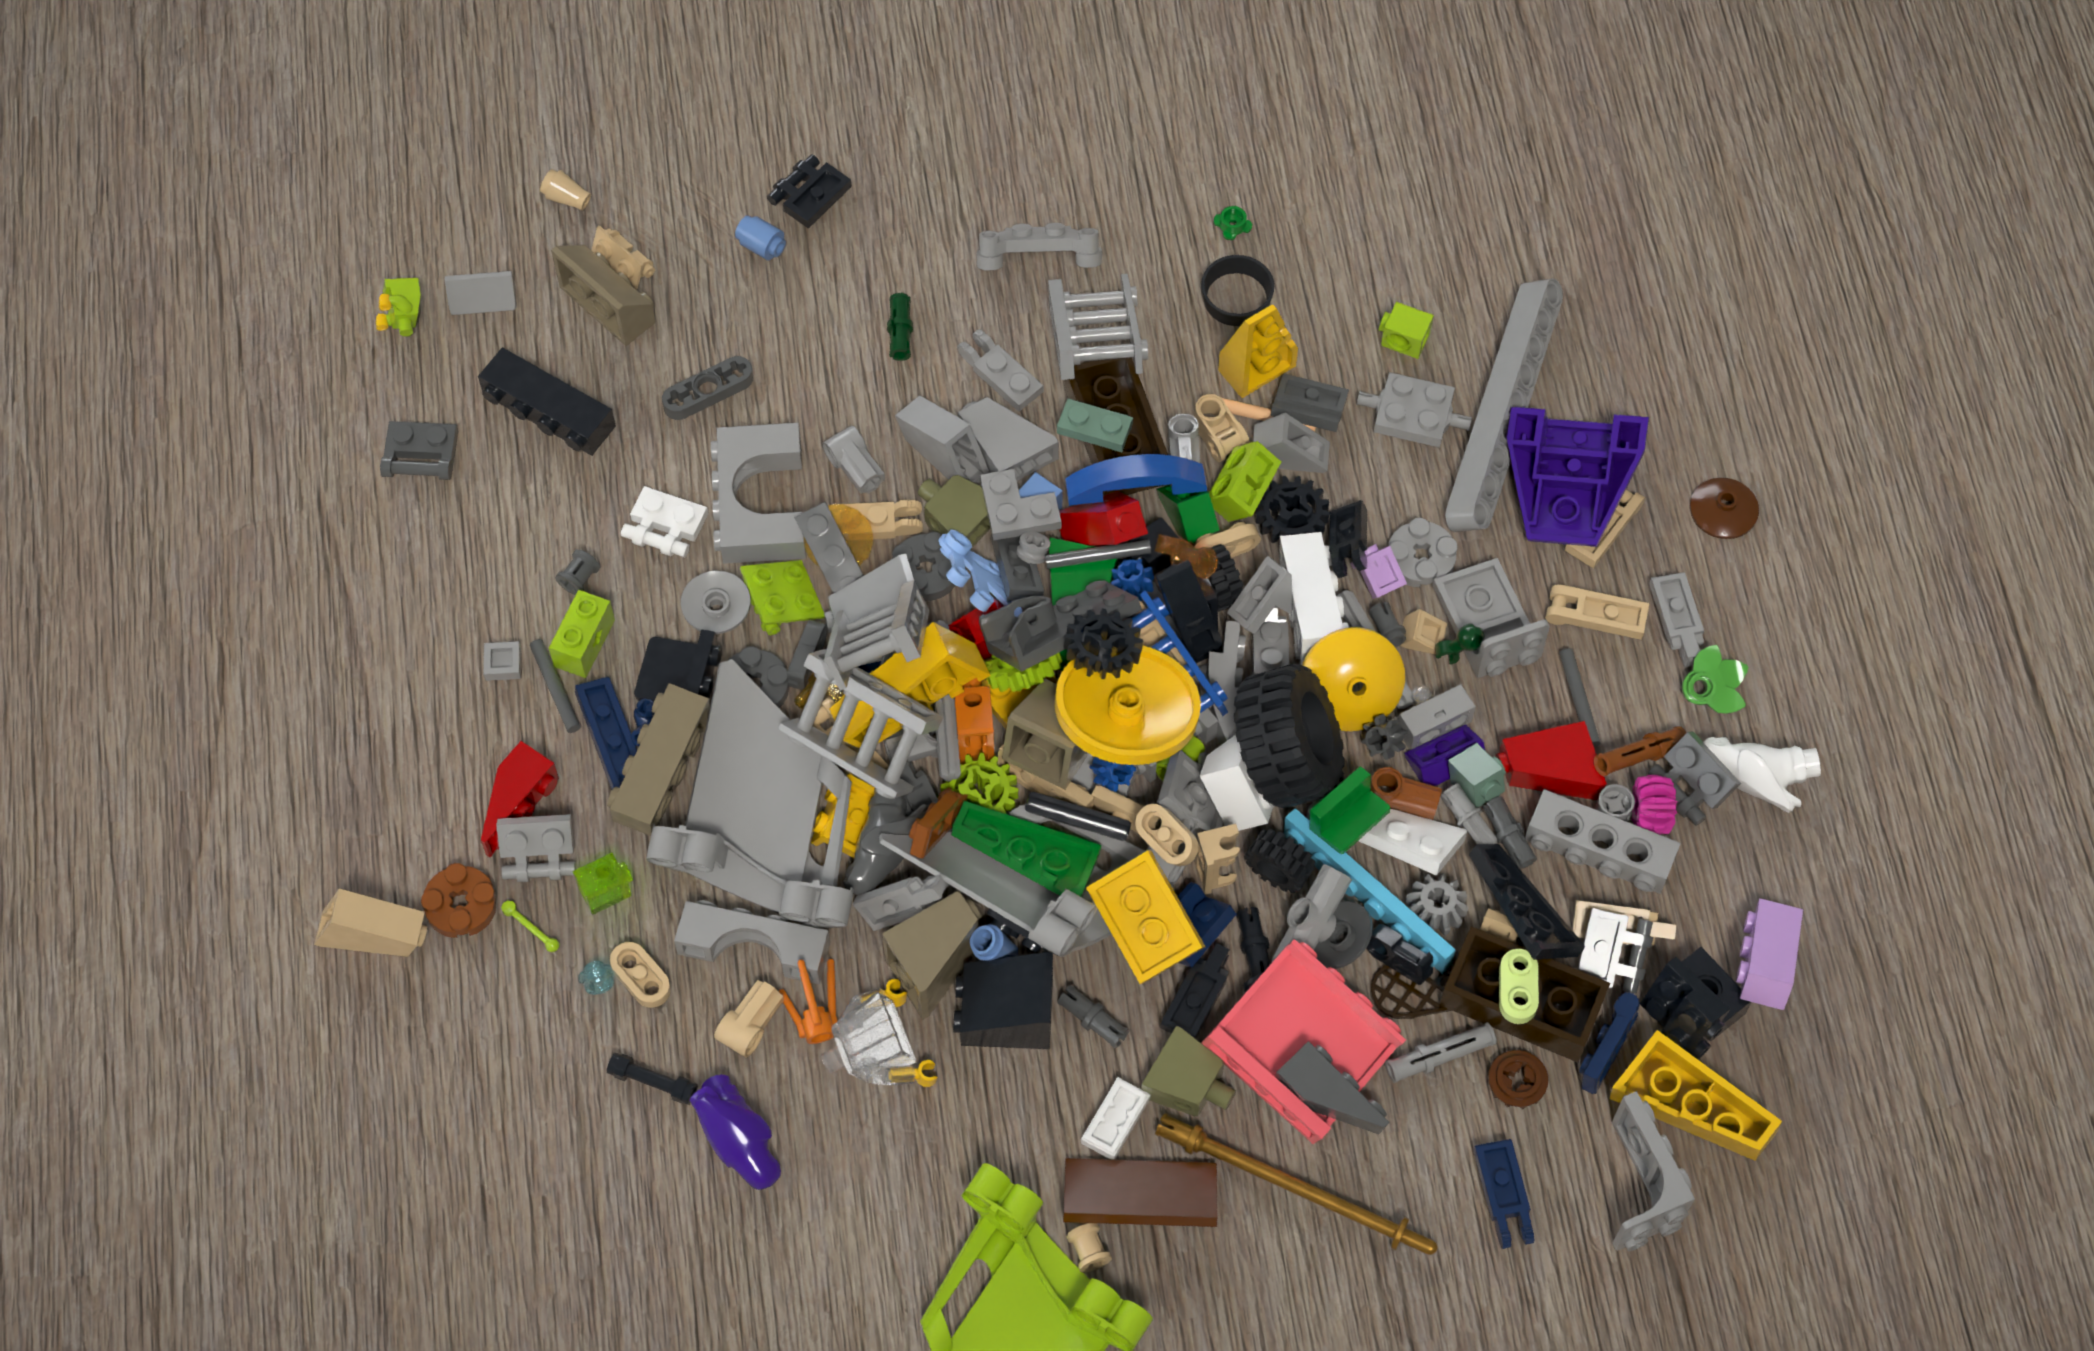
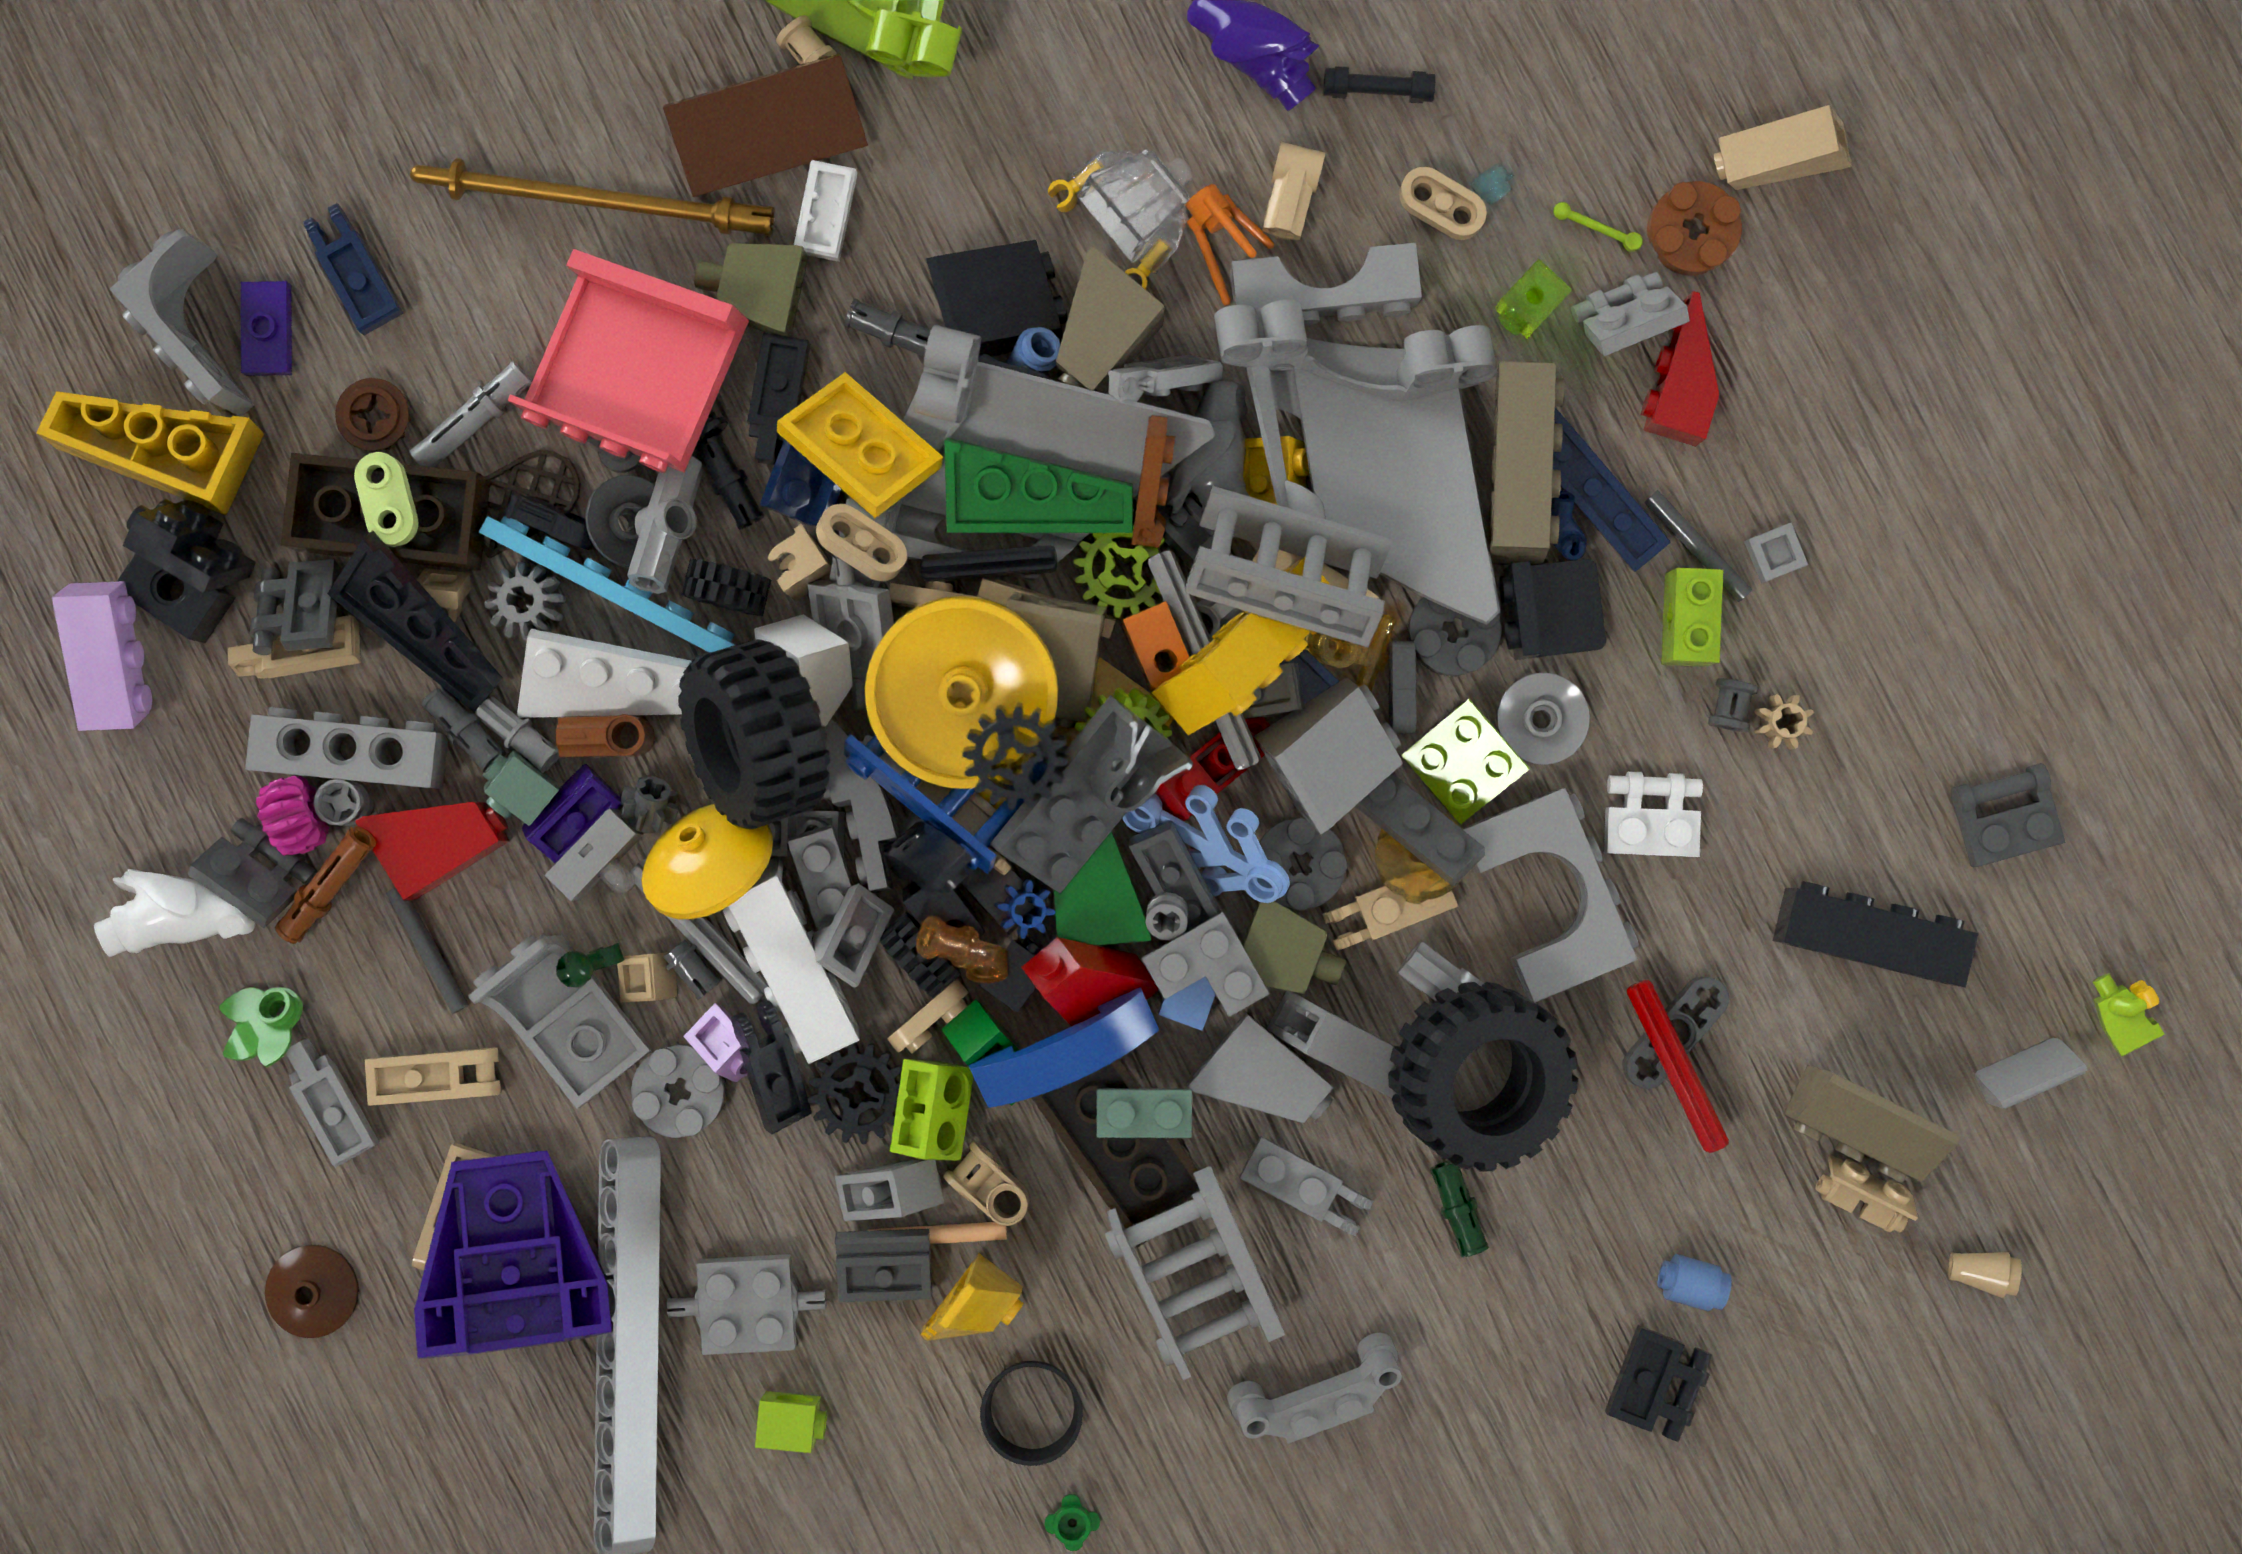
camera: 160 degrees right, 25 degrees up
(547, 550) = (1792, 730): none -> tan gear
(716, 361) = (1677, 1066): none -> red axle
(859, 411) = (1525, 1108): none -> black tyre
(875, 635) = (1264, 660): light grey fence -> none
(1098, 554) = (1084, 925): dark grey bar -> none
(1184, 437) = (1024, 1133): light grey piece -> none
(1328, 1091) = (588, 305): dark grey slope -> none
(1348, 812) = (653, 666): green panel -> none
(1586, 1172) = (266, 328): none -> dark purple plate
(1610, 1042) = (271, 492): dark blue hinge -> none

